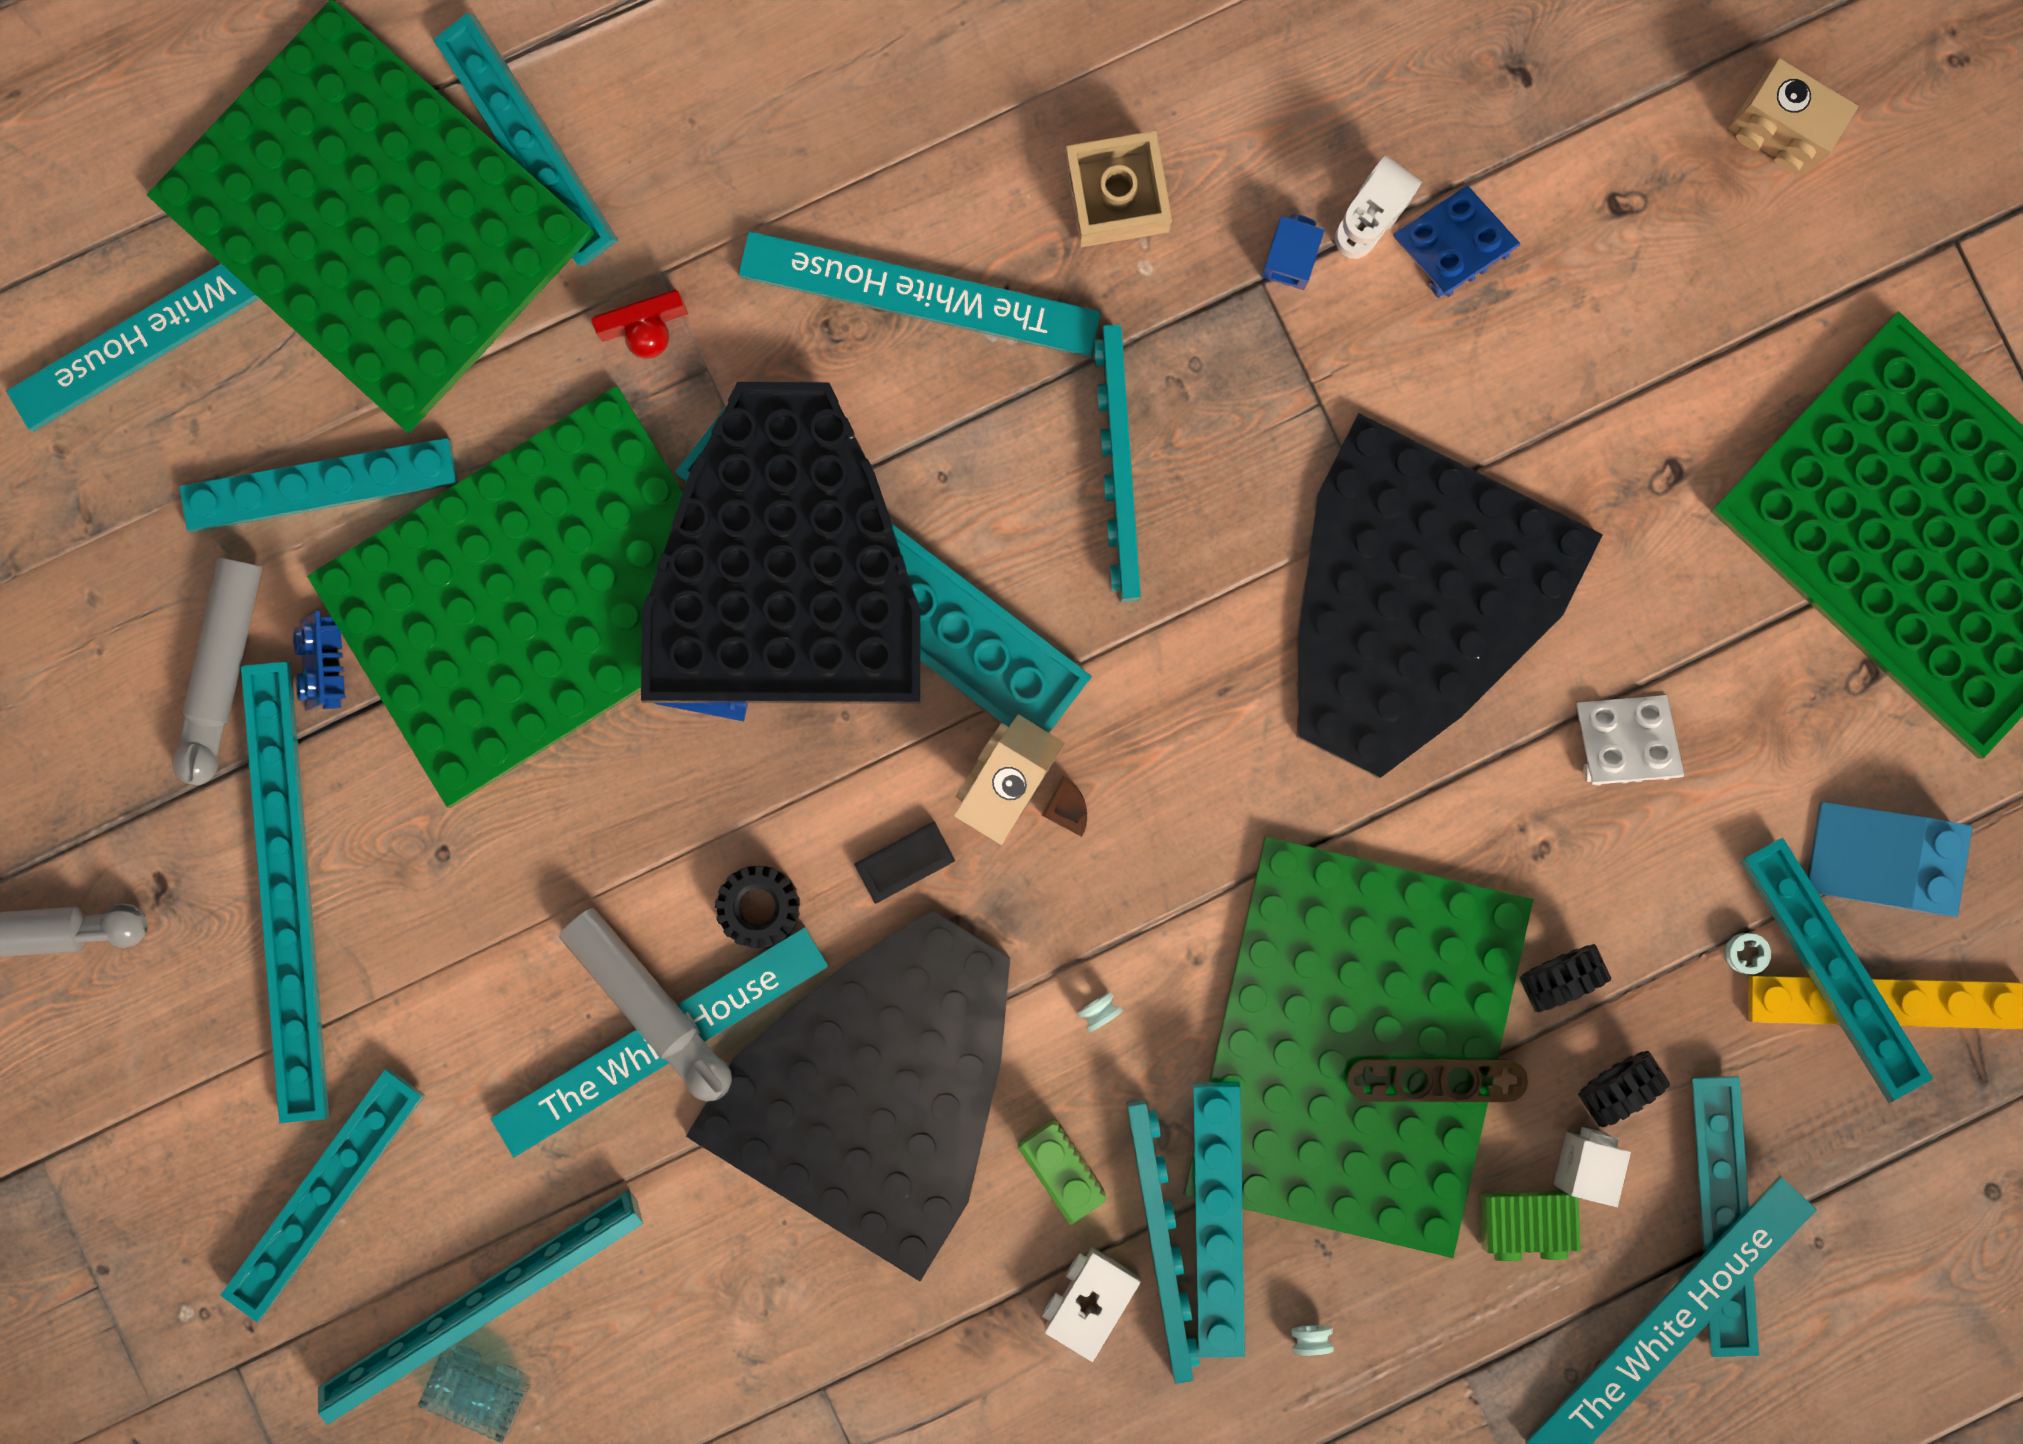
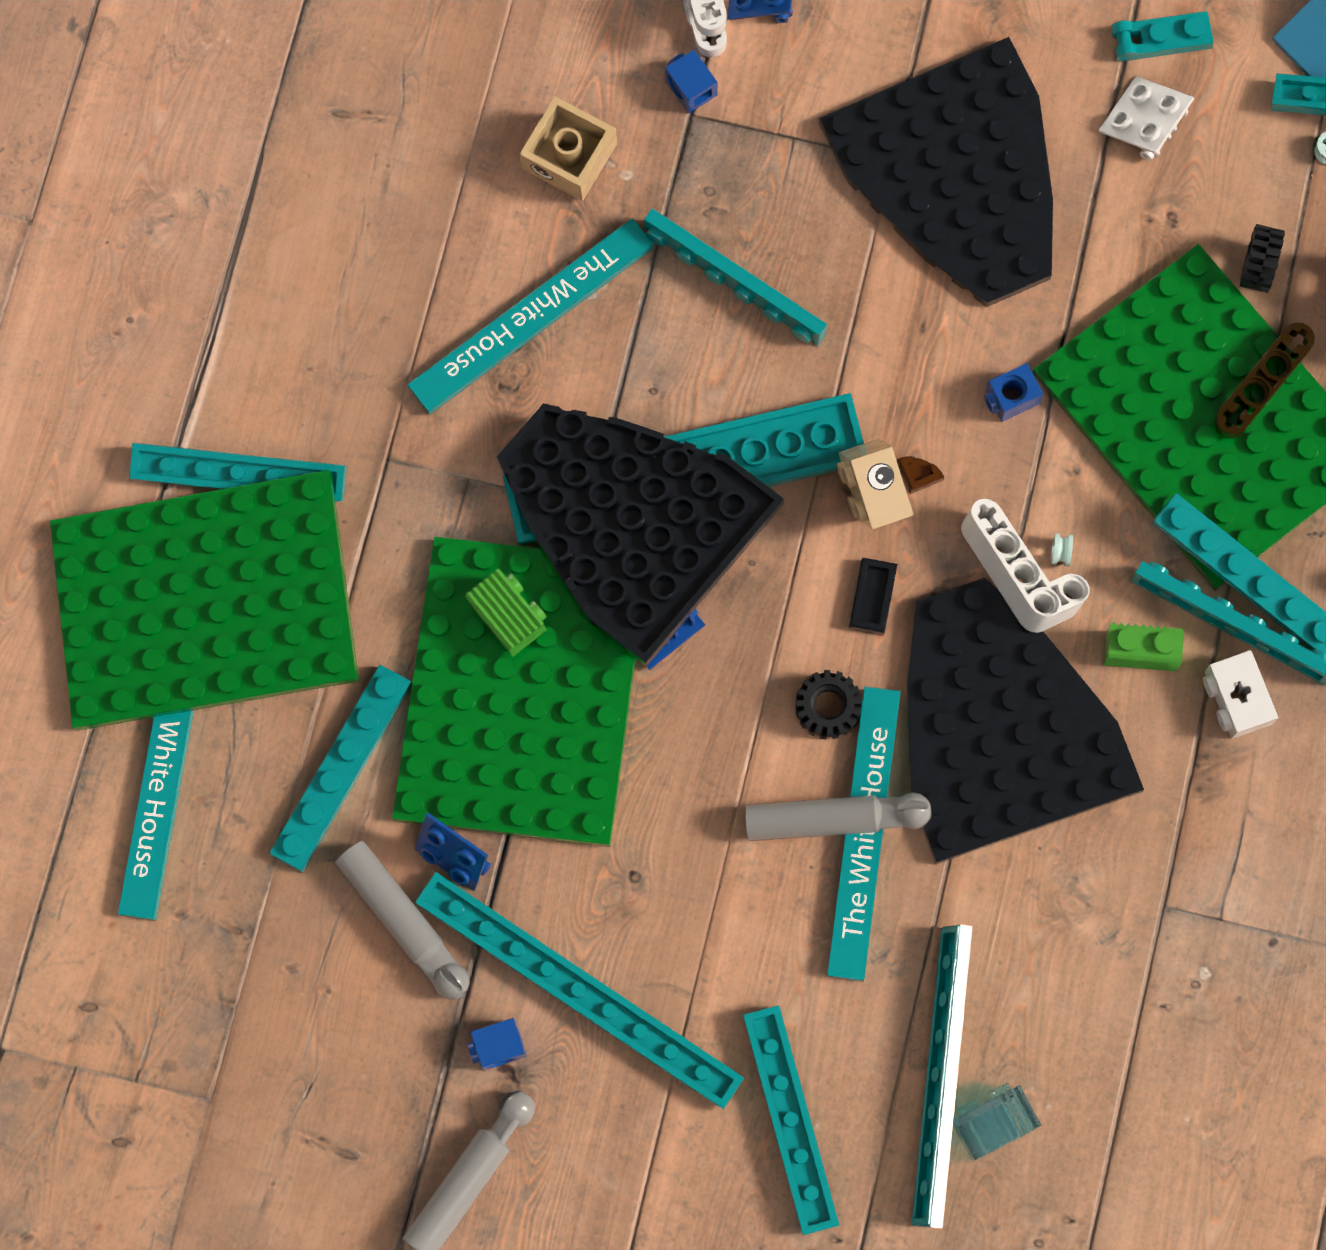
camera: 45 degrees left, 10 degrees down
(169, 857) = (497, 1044): none -> blue brick
(588, 521) = (506, 612): none -> bright green brick
(642, 323) = (410, 490): red tile -> none
(1049, 983) = (990, 529): none -> white beam
(1243, 836) = (1020, 380): none -> blue brick
(1732, 689) = (1163, 36): none -> teal plate

